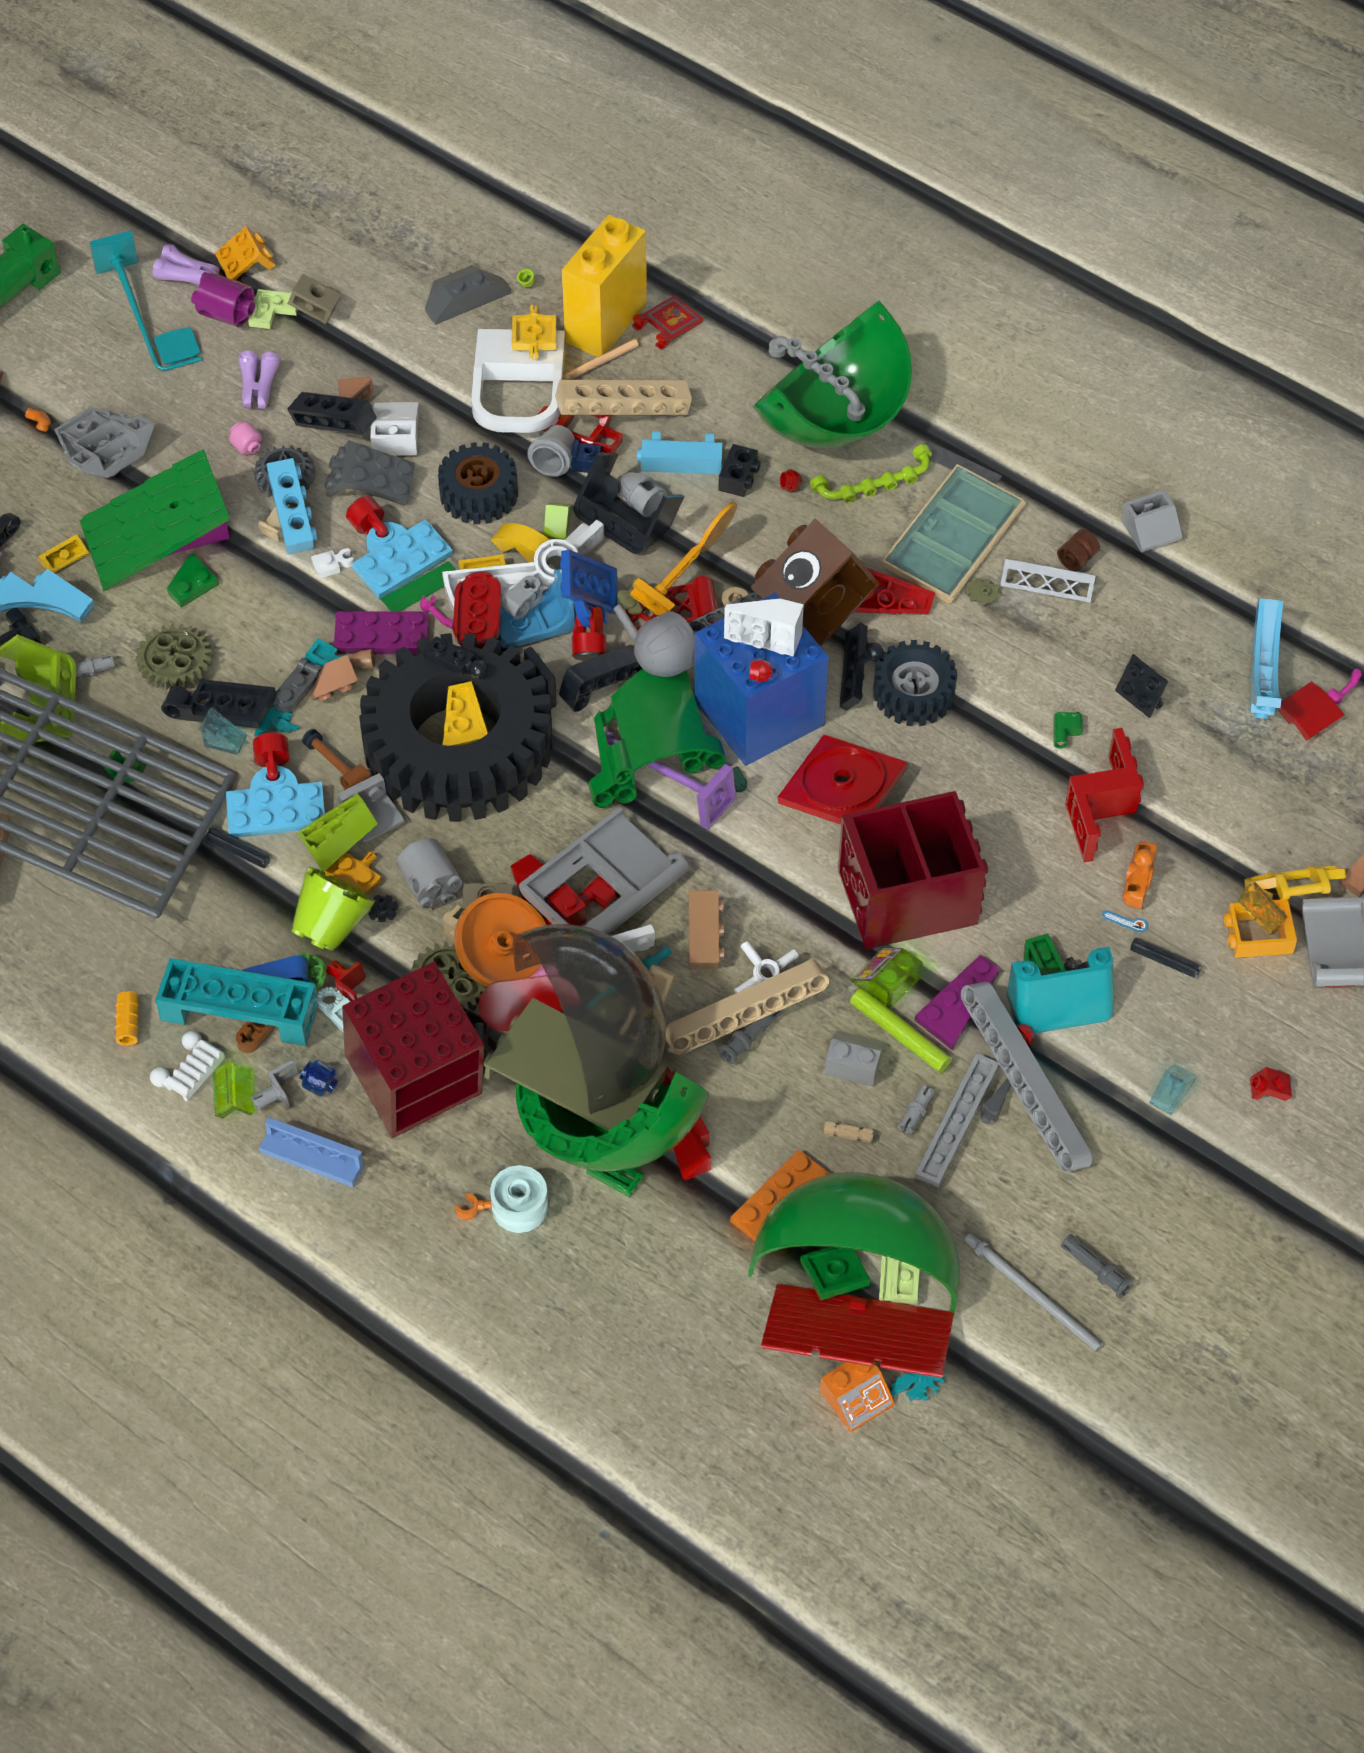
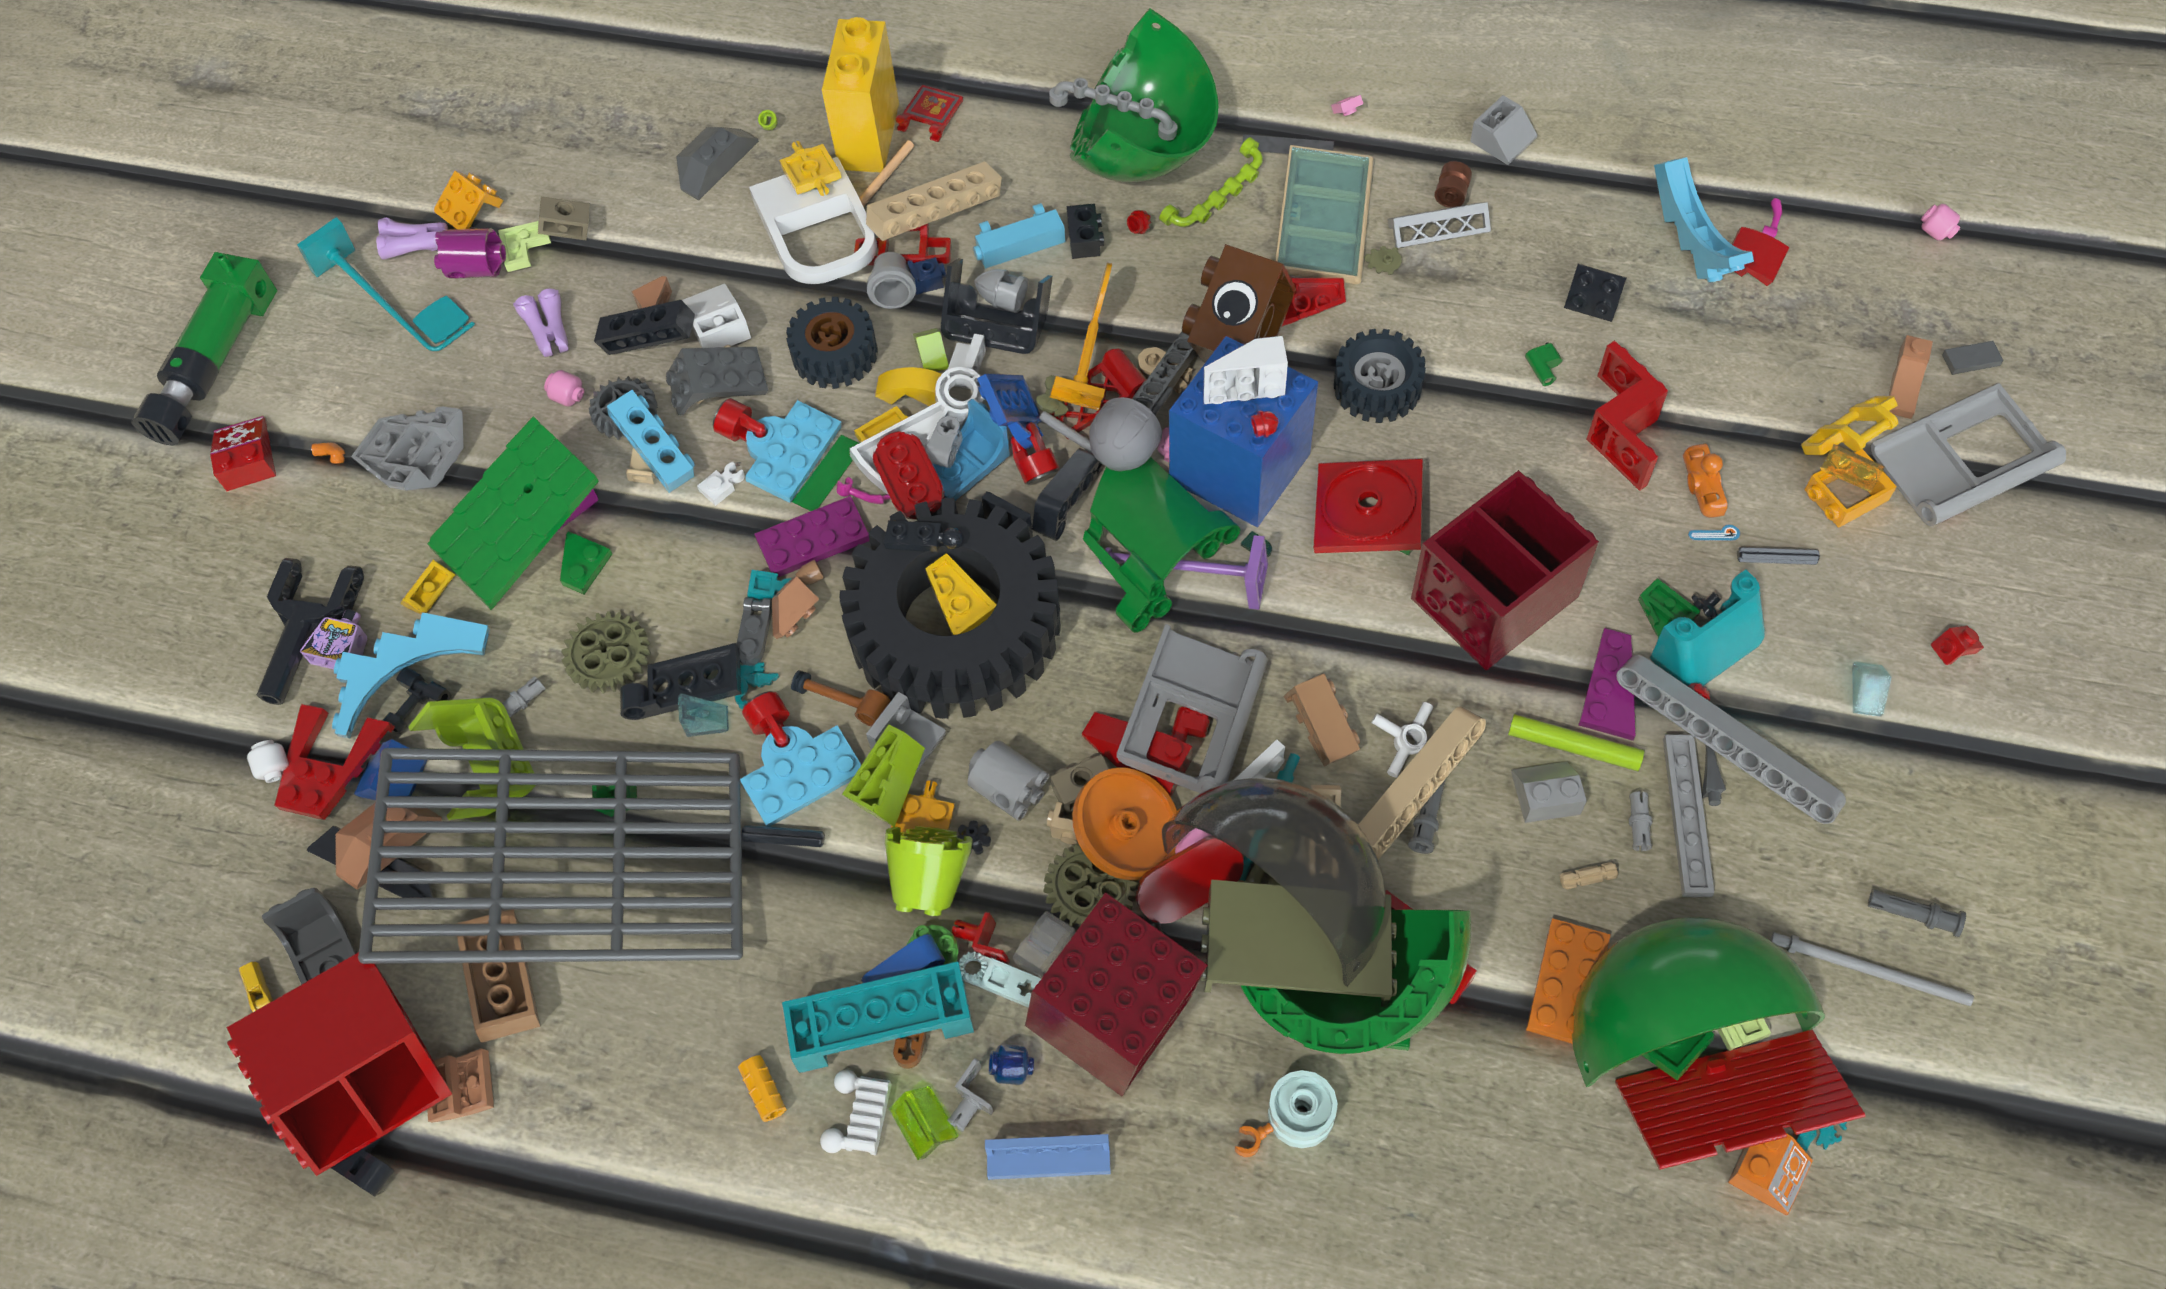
camera: 20 degrees left, 5 degrees up
(855, 656) = (1301, 361): black plate -> none
(889, 975) = (1528, 687): clear neon green slope -> none
(1029, 449) = (1347, 105): none -> bright pink plate

